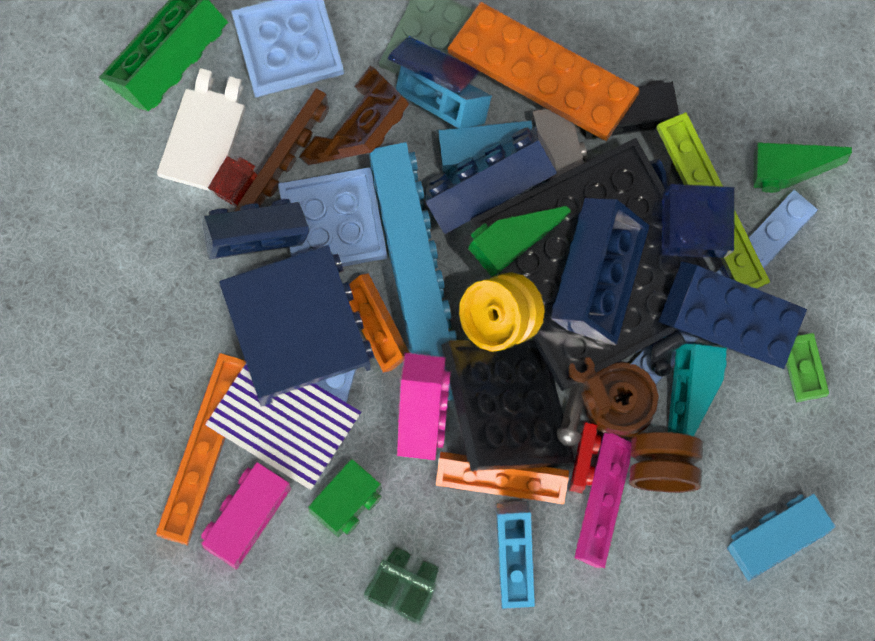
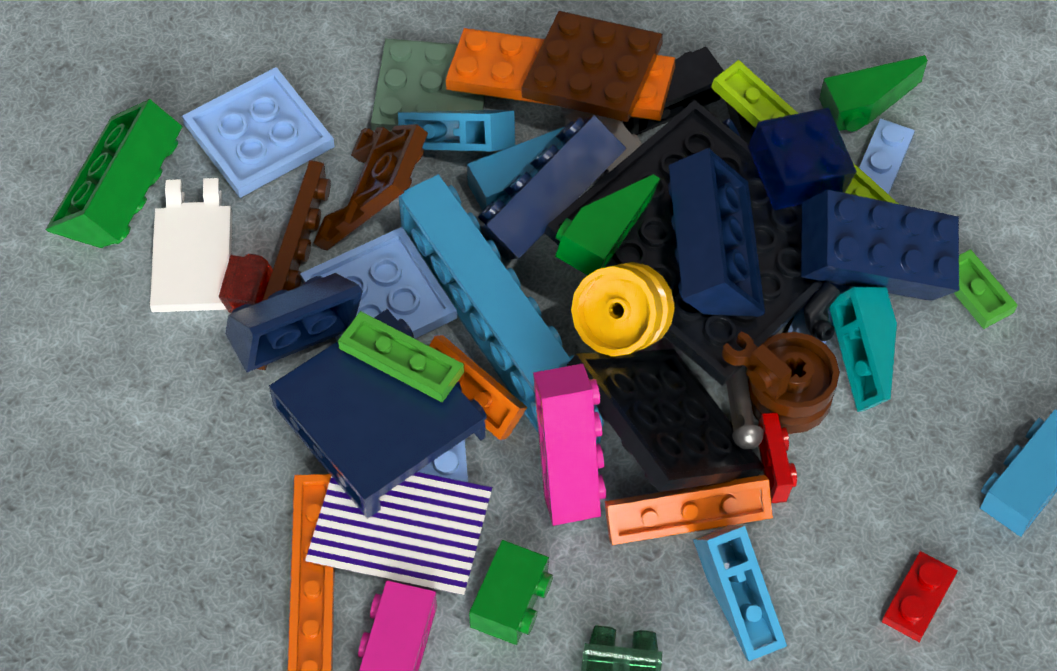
camera: 20 degrees left, 15 degrees down
(322, 292) = (401, 356): none -> bright green plate
(433, 65) = (436, 98): clear blue piece -> none
(567, 78) = (592, 66): none -> reddish brown plate
(604, 501) = (818, 498): dark pink plate -> none
(649, 602) = (919, 596): none -> red plate
(666, 462) = (874, 427): reddish brown wheel -> none

